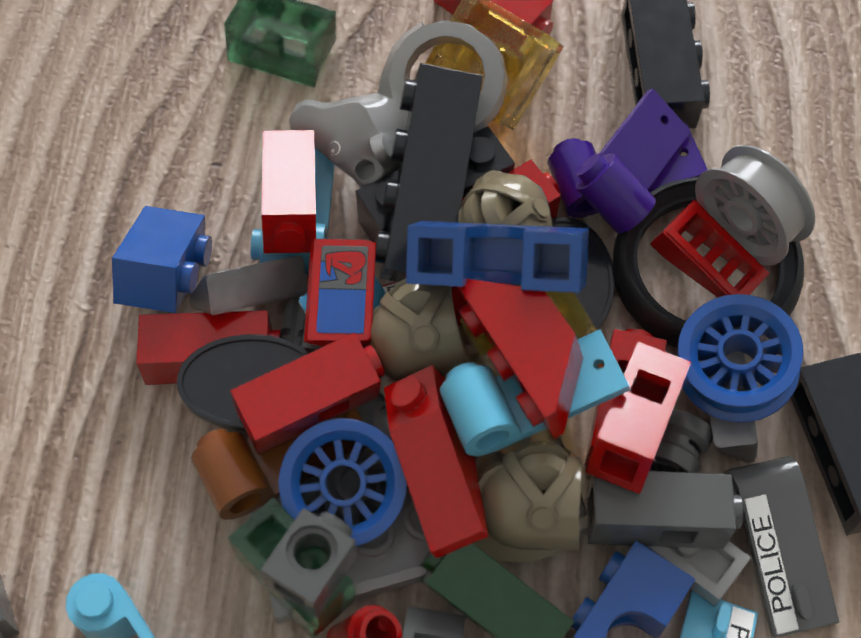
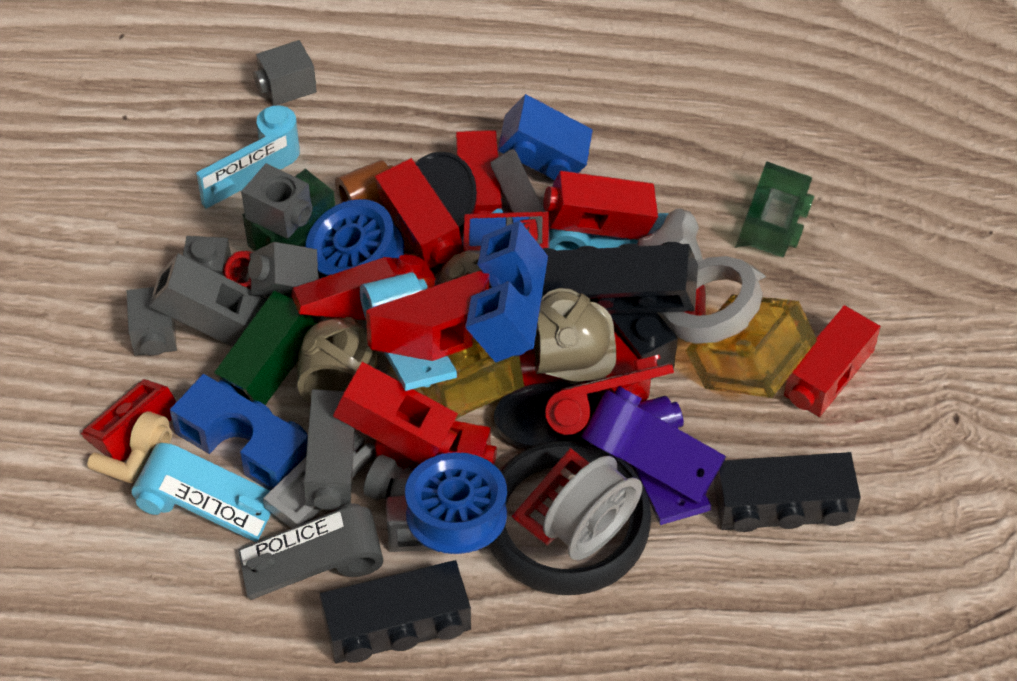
camera: 90 degrees right, 10 degrees down
(392, 572) = (281, 268): none -> dark grey brick
(569, 189) = (570, 408): none -> red door

